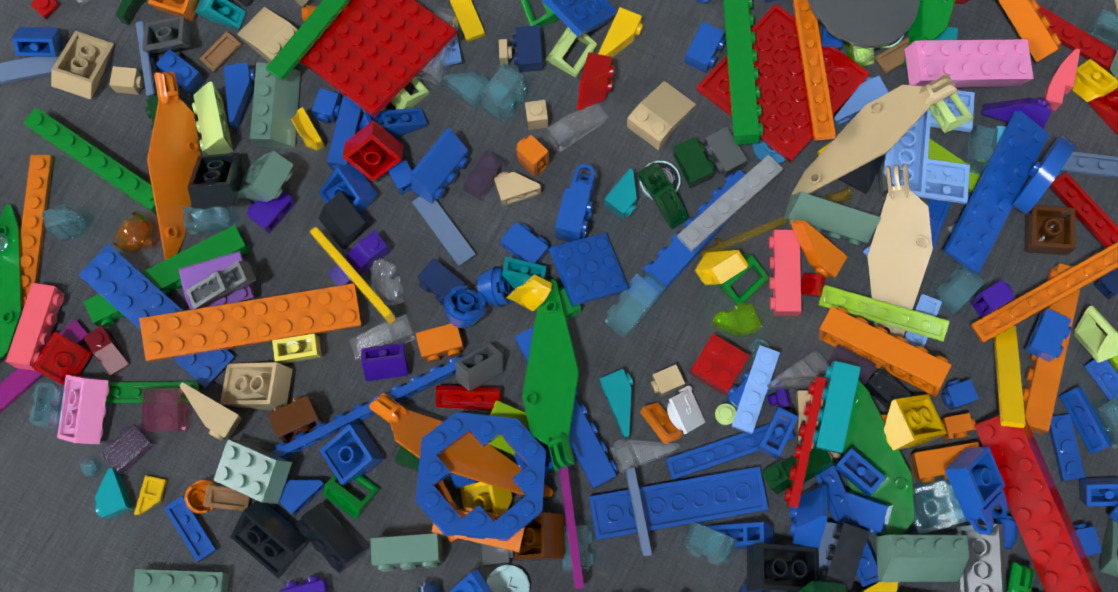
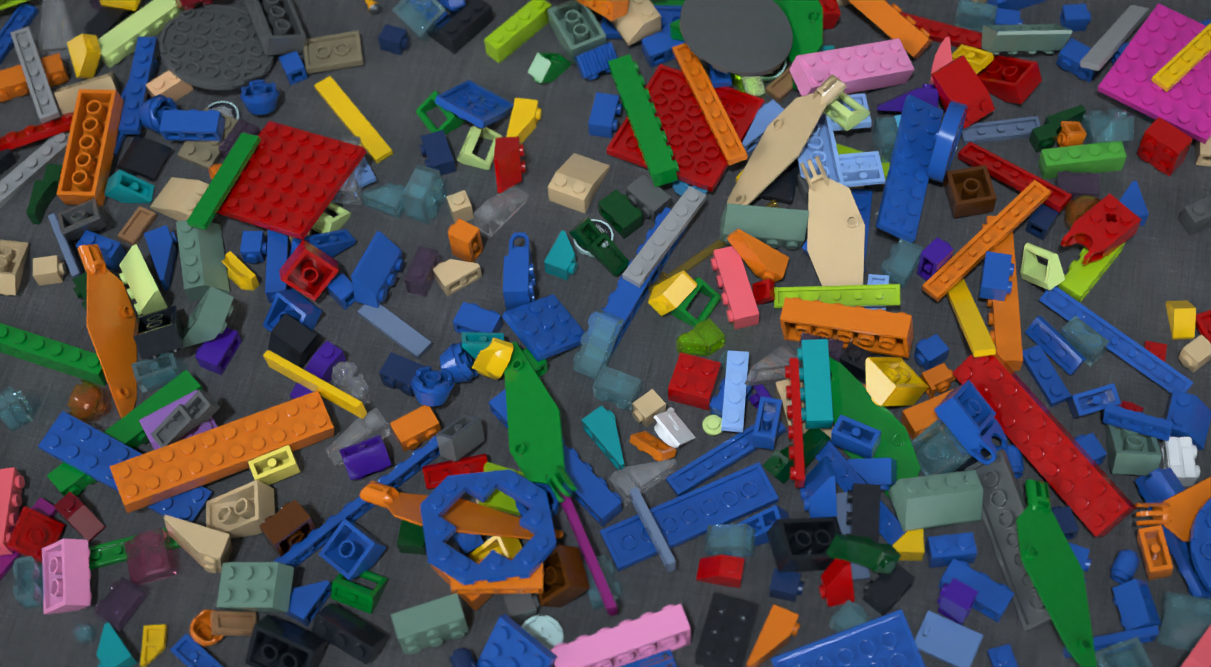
camera: 15 degrees left, 15 degrees down
(505, 52) = (414, 159): tan plate -> none
(642, 351) = (616, 387): none -> clear light blue brick
(693, 568) = (721, 570): none -> red slope
(1076, 116) = (961, 84): none -> red slope

